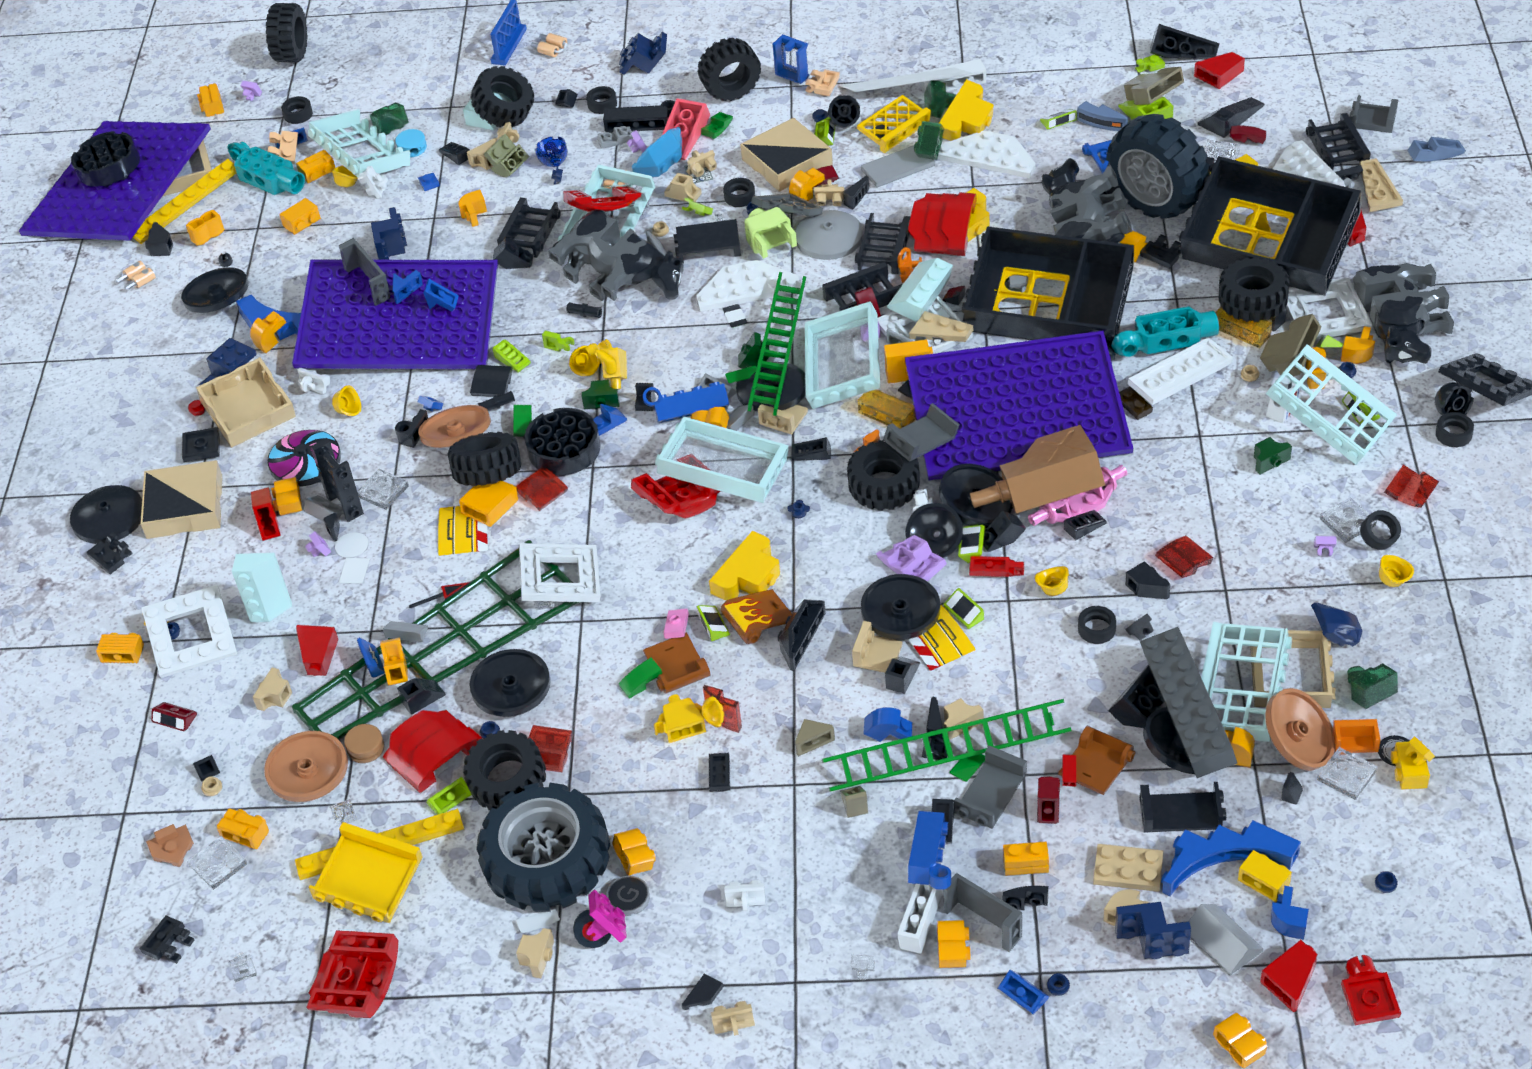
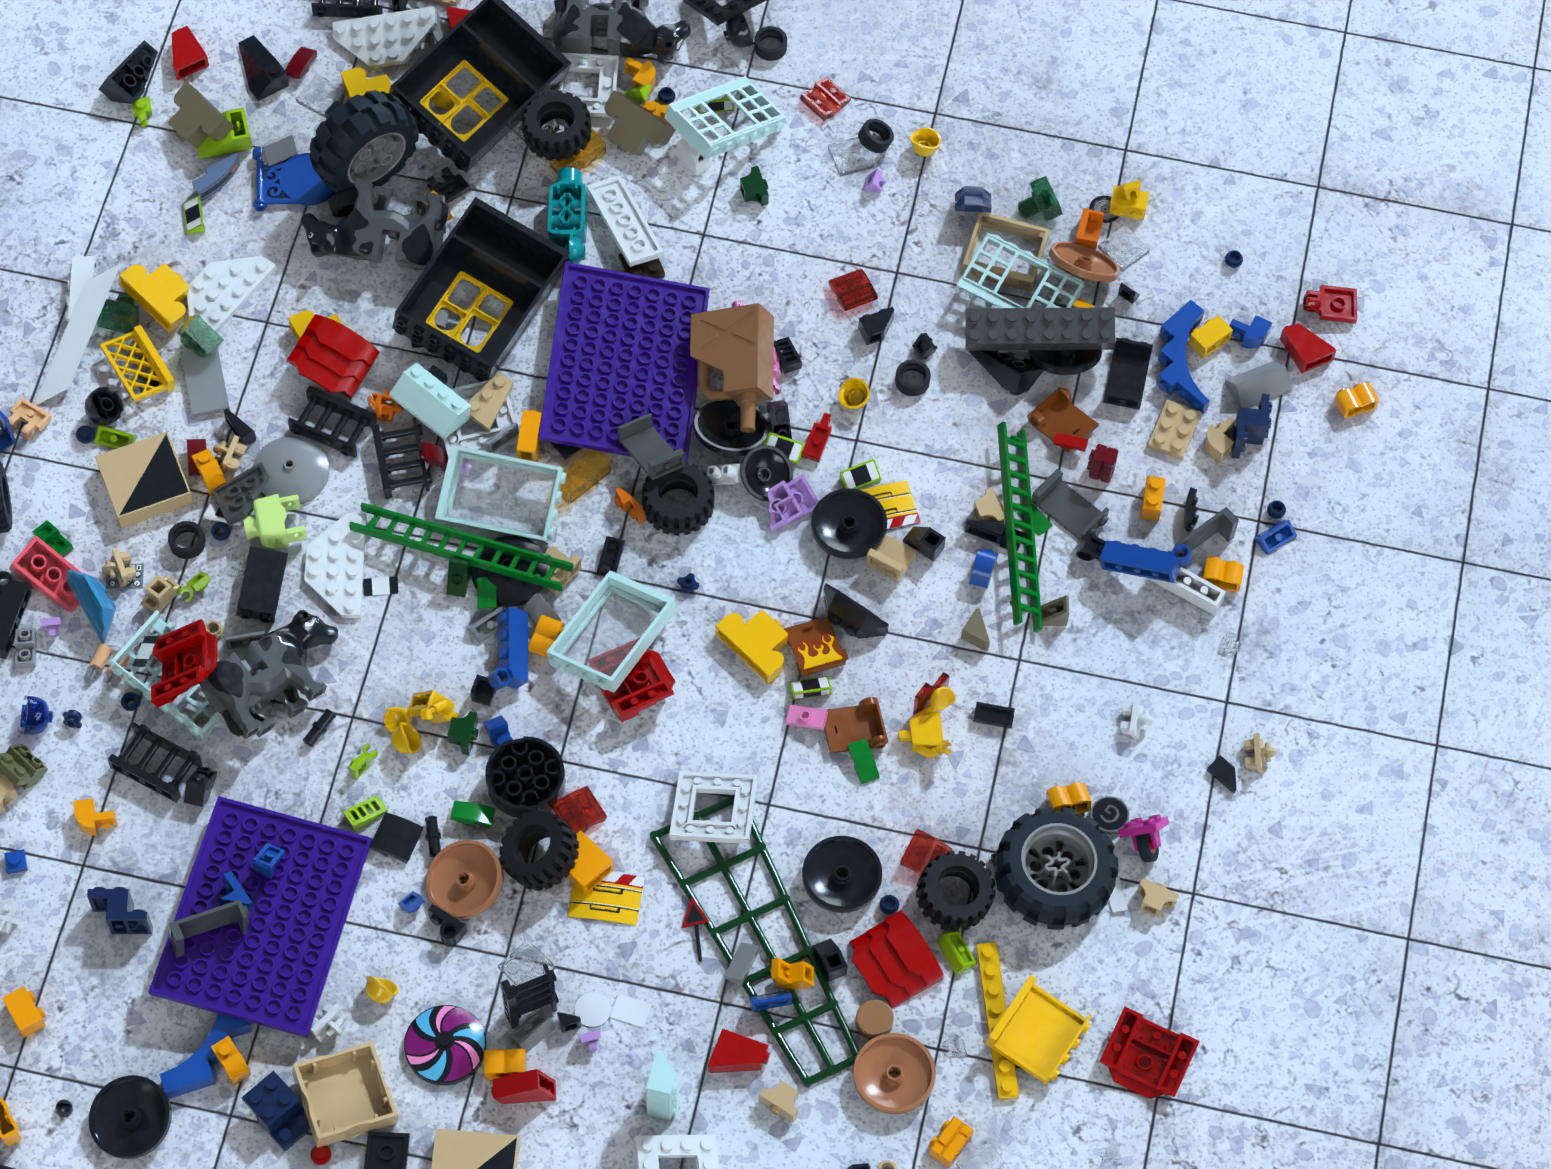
camera: 85 degrees left, 15 degrees up
(1250, 373) = (642, 165): tan plate -> none

